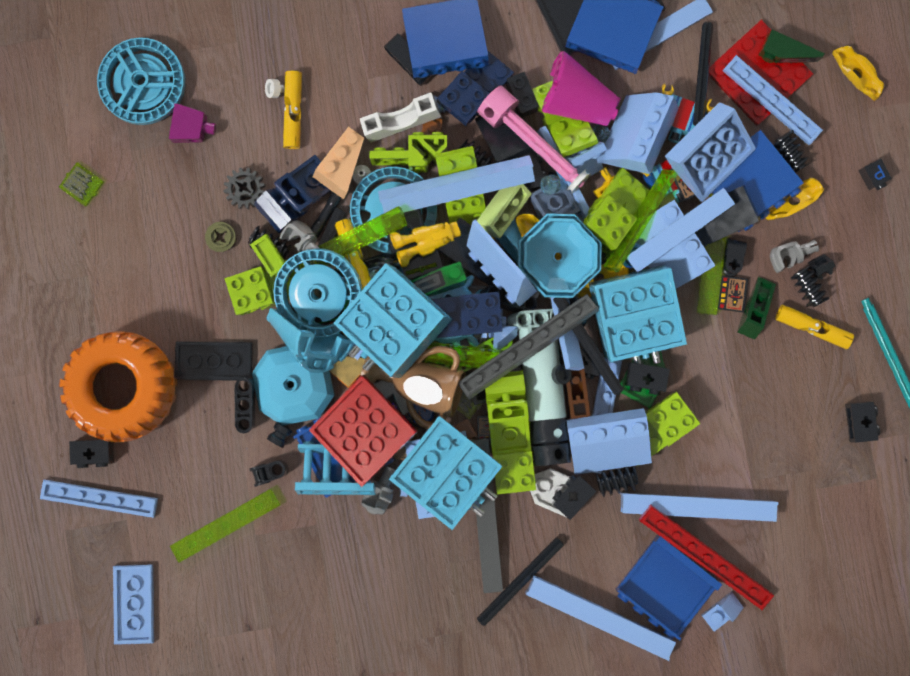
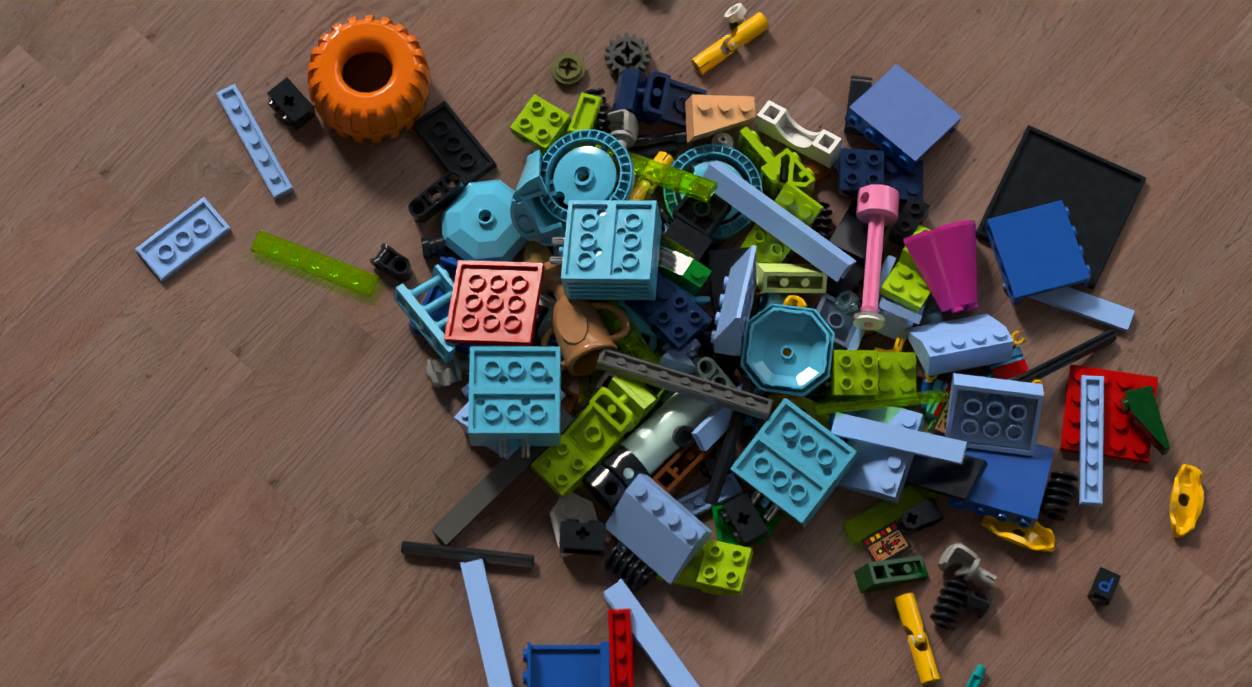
camera: 50 degrees right, 15 degrees down
(427, 240) = (707, 230): yellow piece -> none

